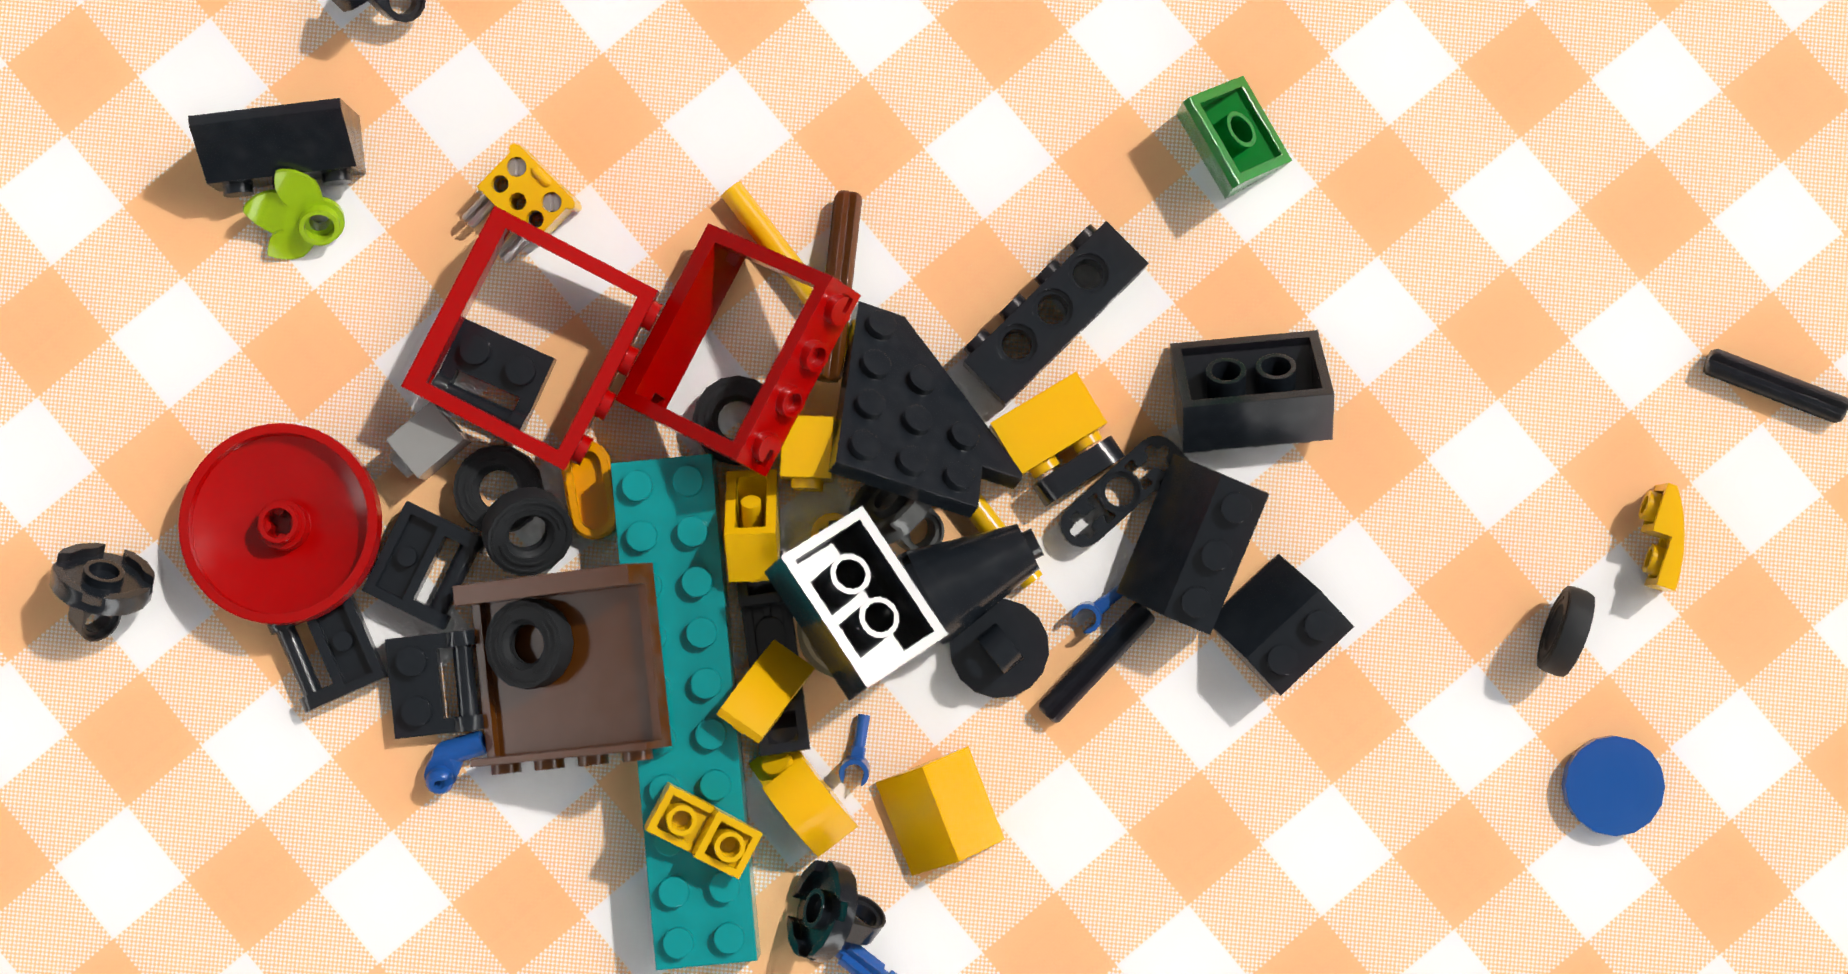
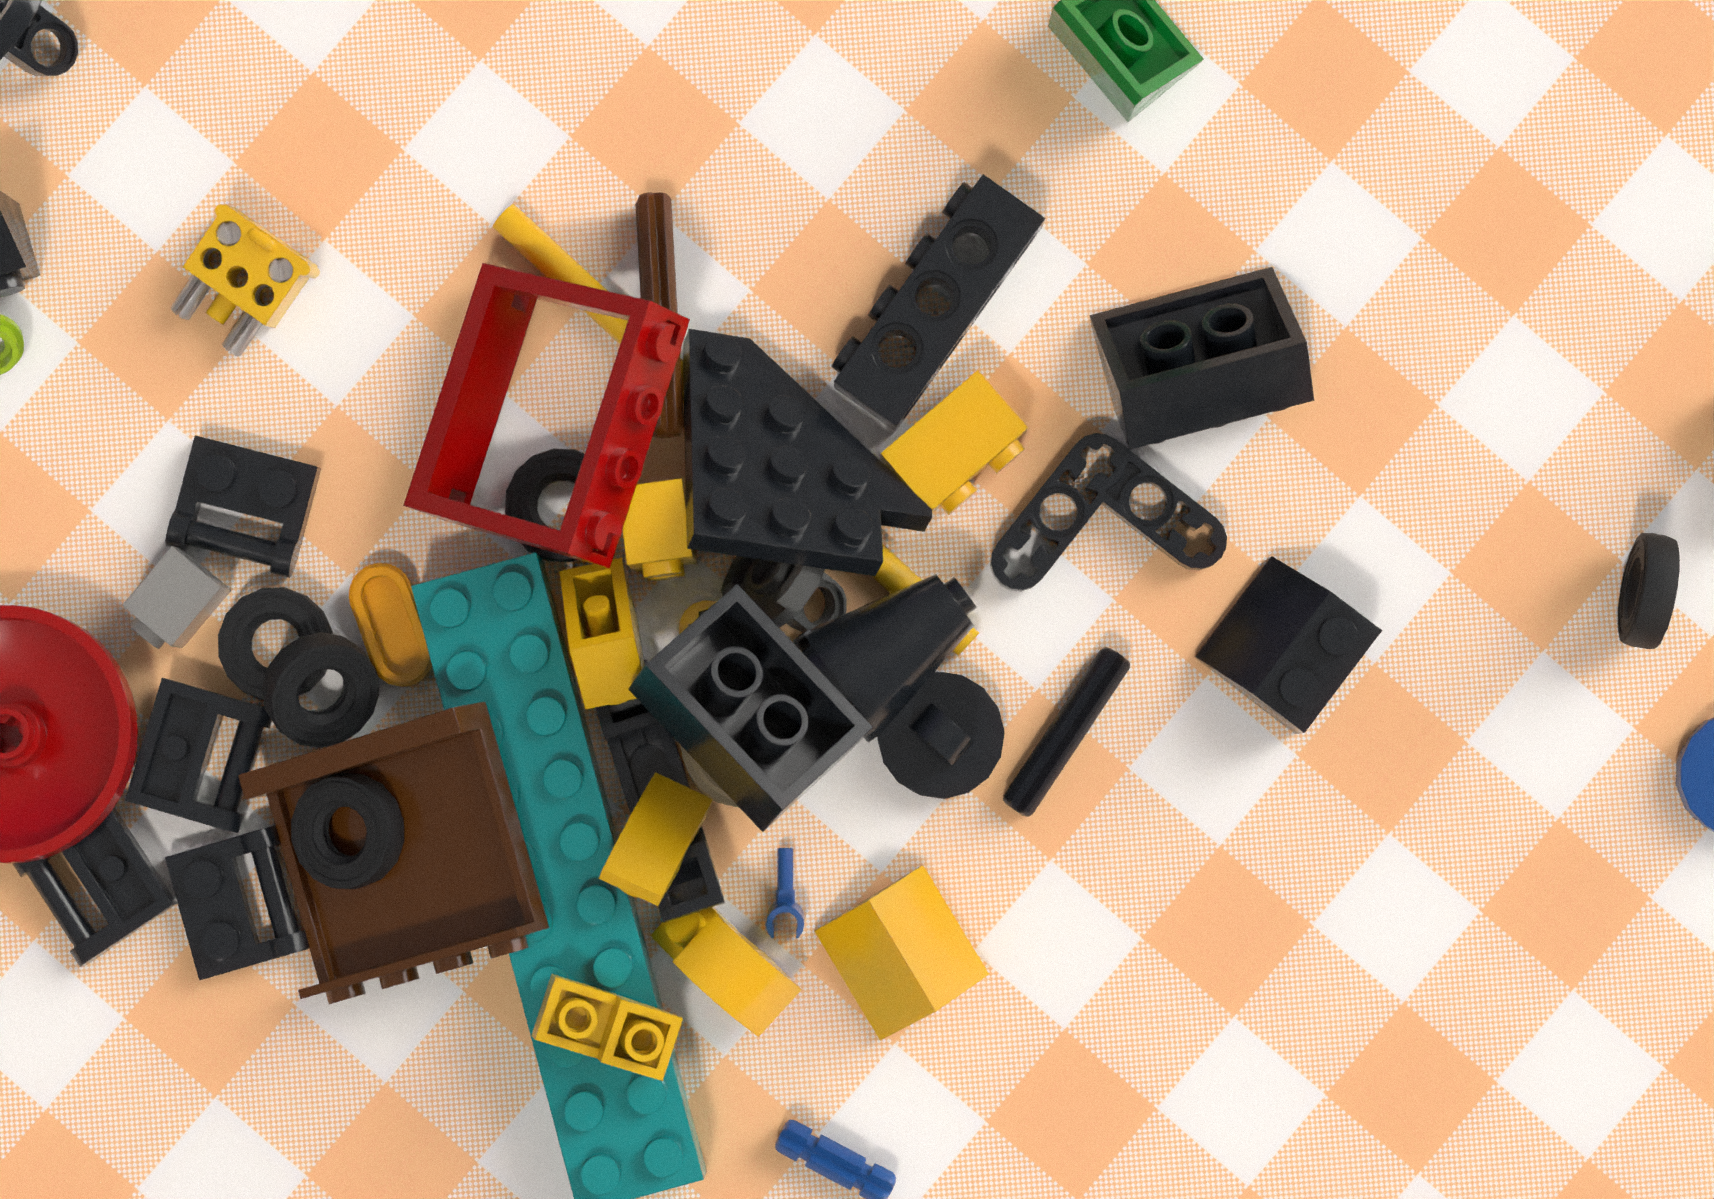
camera: 10 degrees left, 0 degrees up
(448, 759) = (271, 993): blue arm -> none
(458, 303) = (184, 419): red window -> none
(829, 912) = (783, 1103): black tile -> none
(1078, 470) = (1001, 495): black beam -> none
(1099, 607) = (1062, 656): blue hand -> none
(1192, 543) = (1160, 561): black slope -> none

